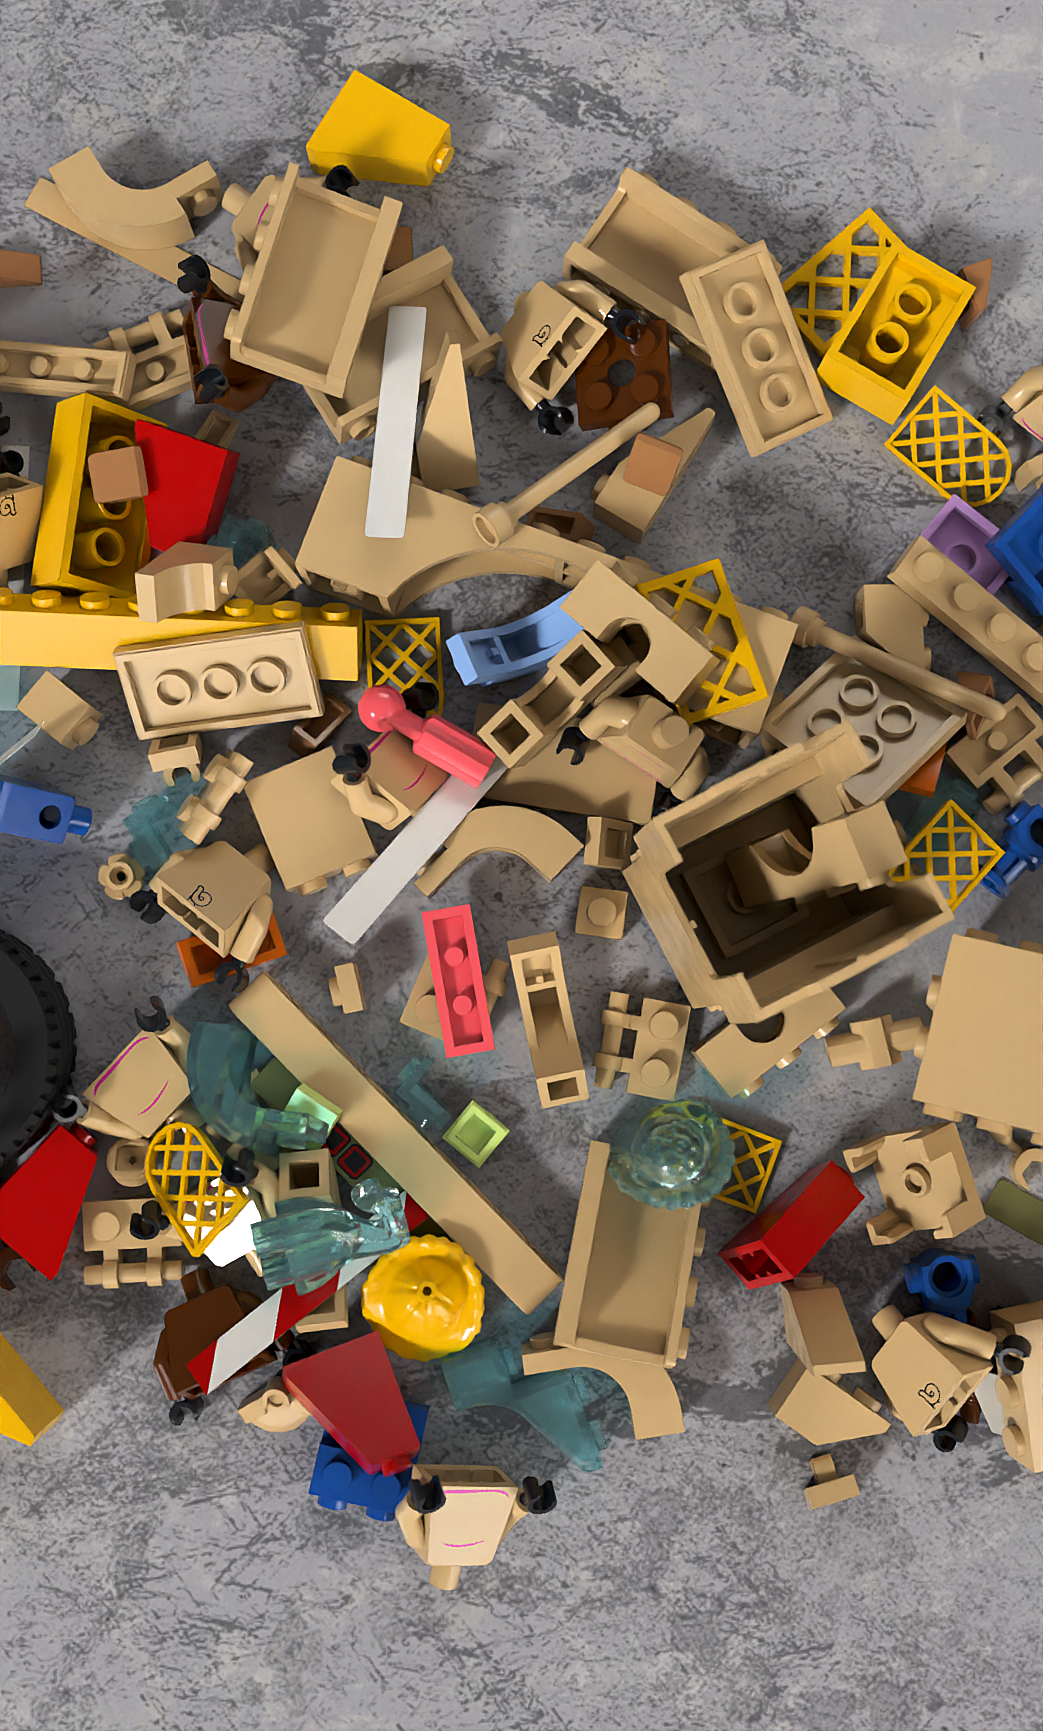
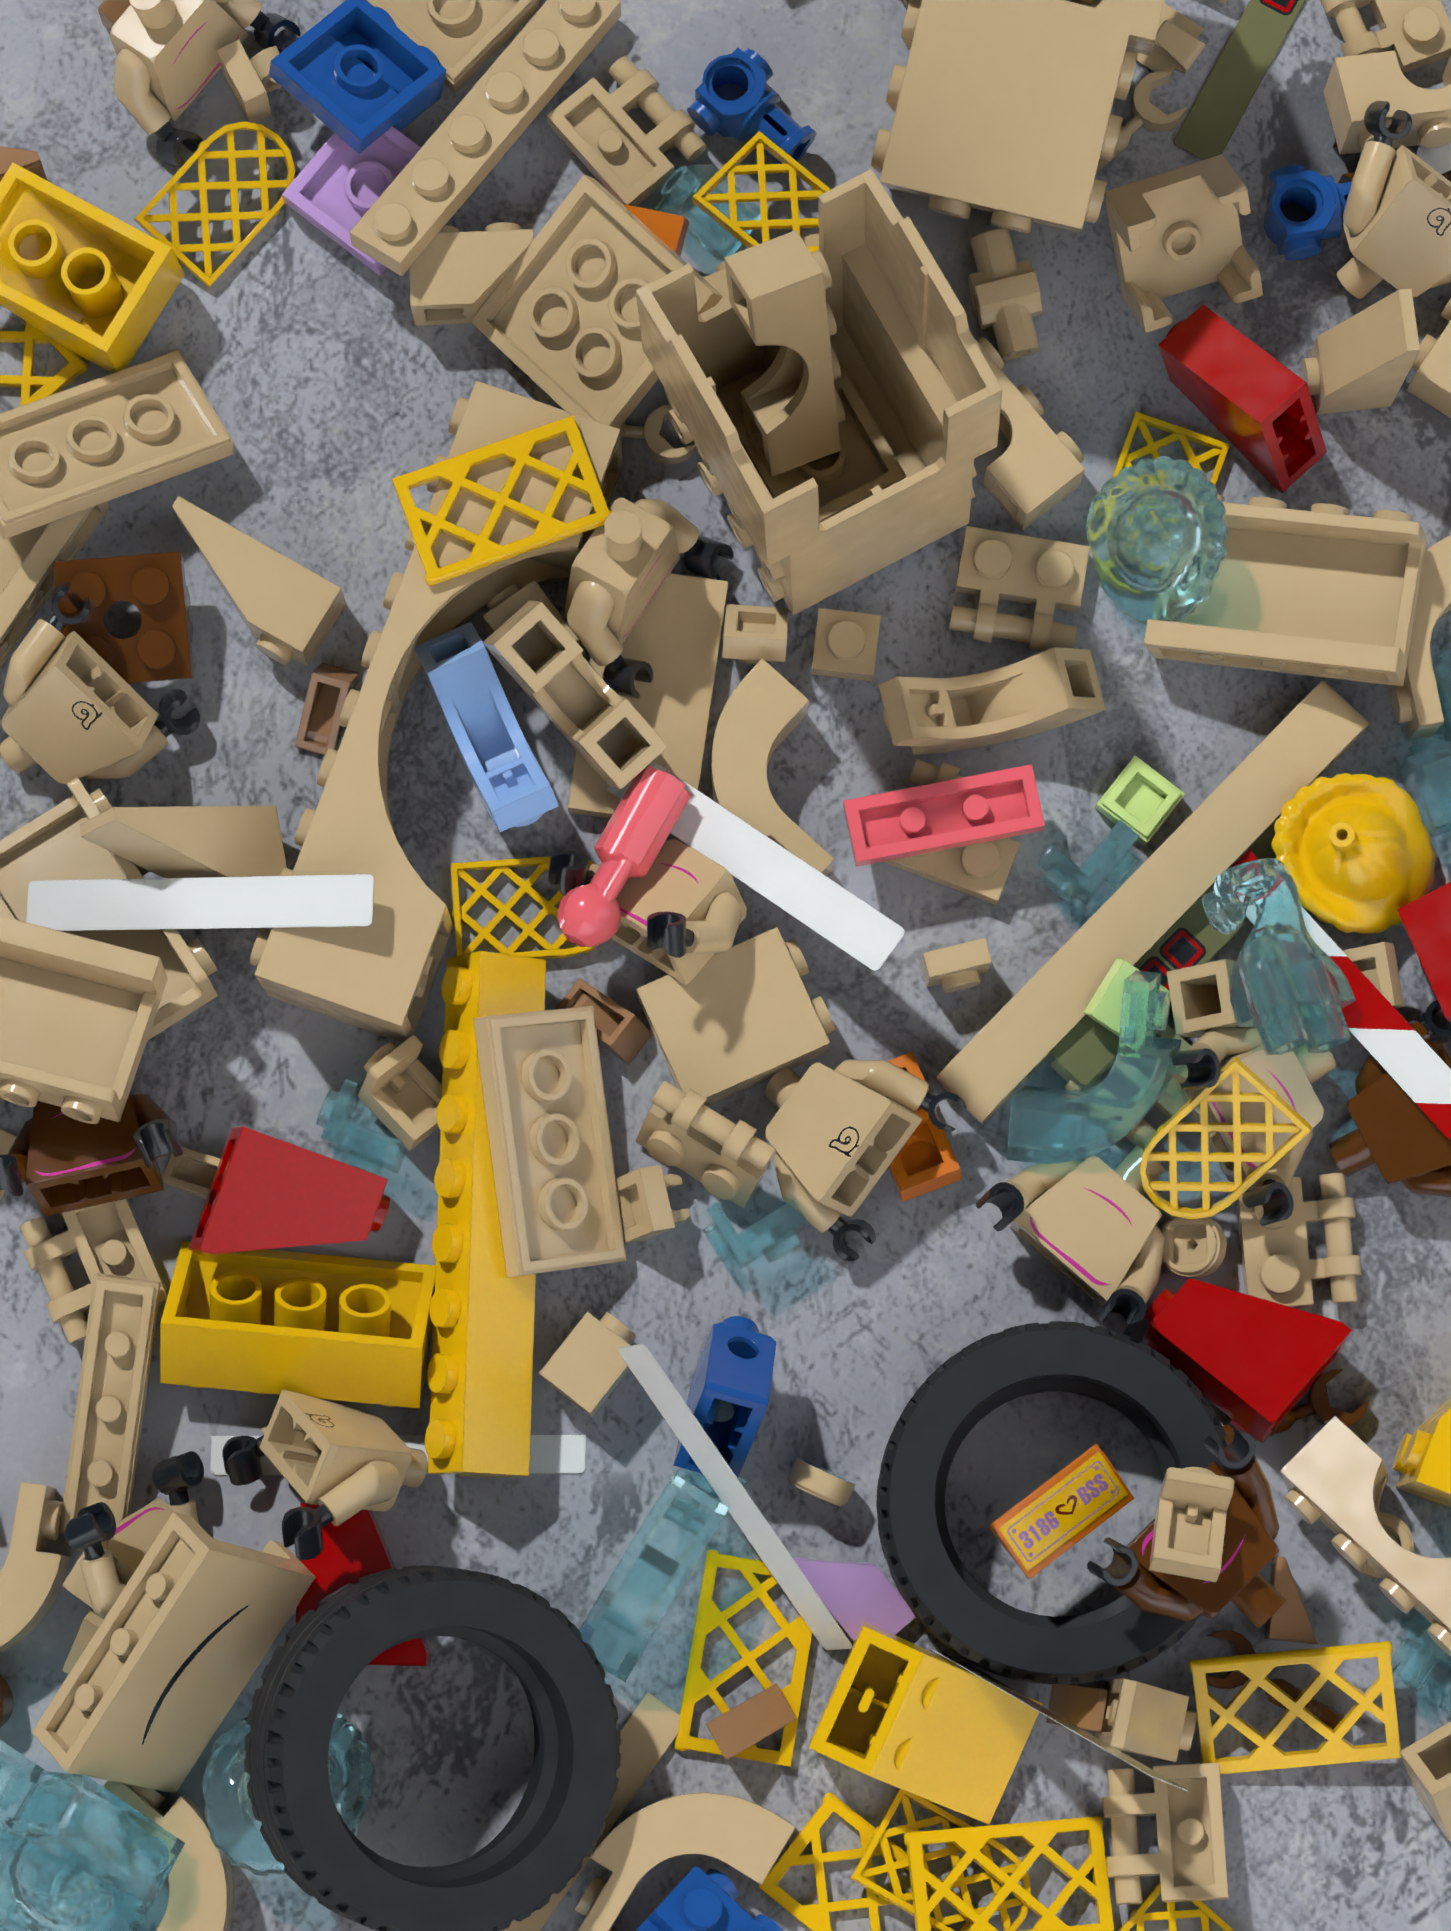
camera: 90 degrees left, 5 degrees down
(109, 873) = (813, 1293): tan plate -> none
(118, 475) = (272, 1277): medium nougat slope -> none
(185, 580) = (420, 1171): tan arch -> none
(497, 521) = (348, 758): tan piece -> none
(652, 464) = (256, 572): medium nougat slope -> none
(676, 658) = (528, 521): tan arch -> none
(814, 631) = (461, 376): tan piece -> none
(982, 684) = (551, 166): medium nougat piece -> none

